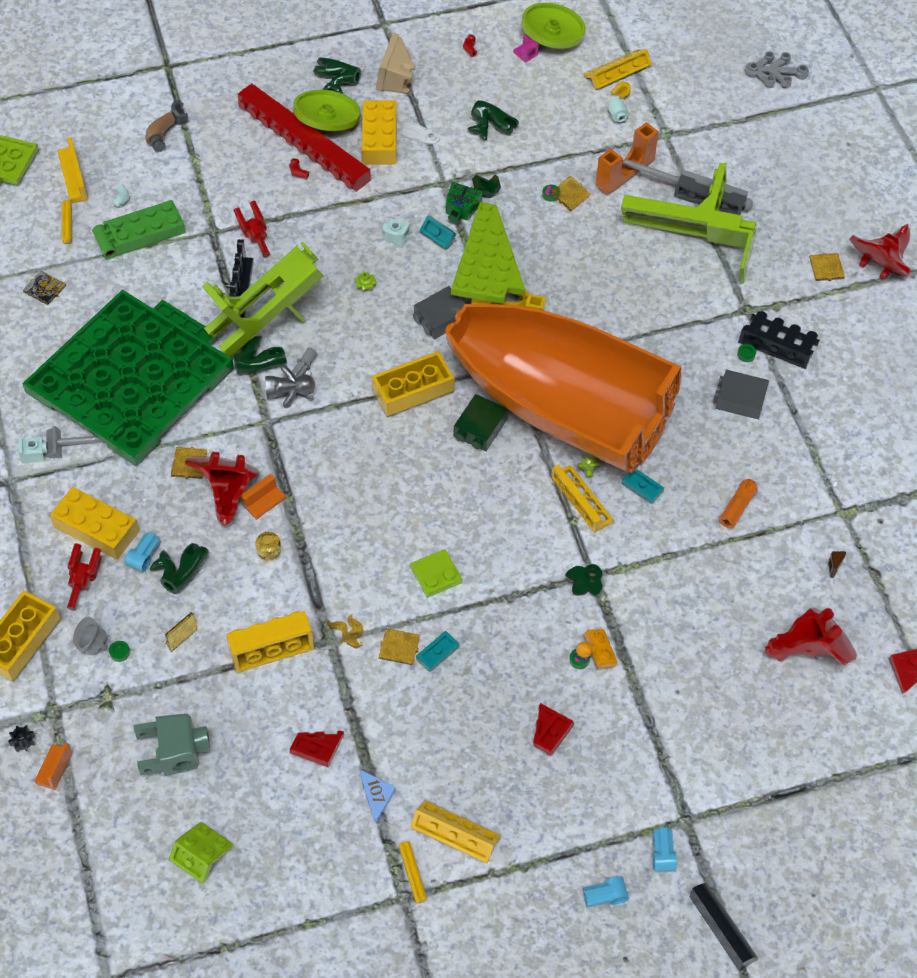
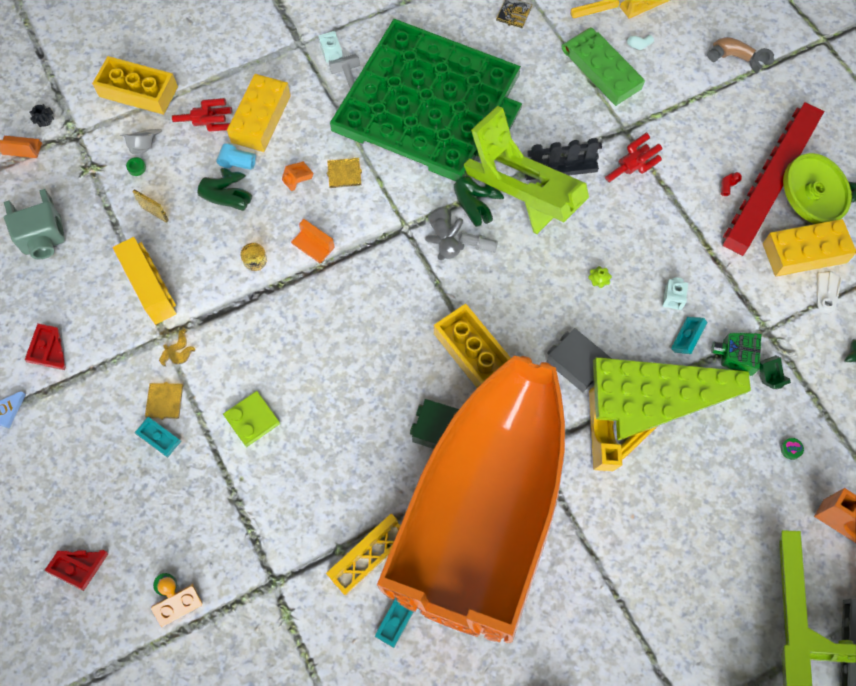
camera: 80 degrees right, 10 degrees up
(182, 501) = (296, 173): none -> orange bracket
(226, 480) = (320, 197): red animal -> none
(570, 193) = (798, 471): clear yellow piece -> none
(583, 581) = (260, 574): dark green plate -> none

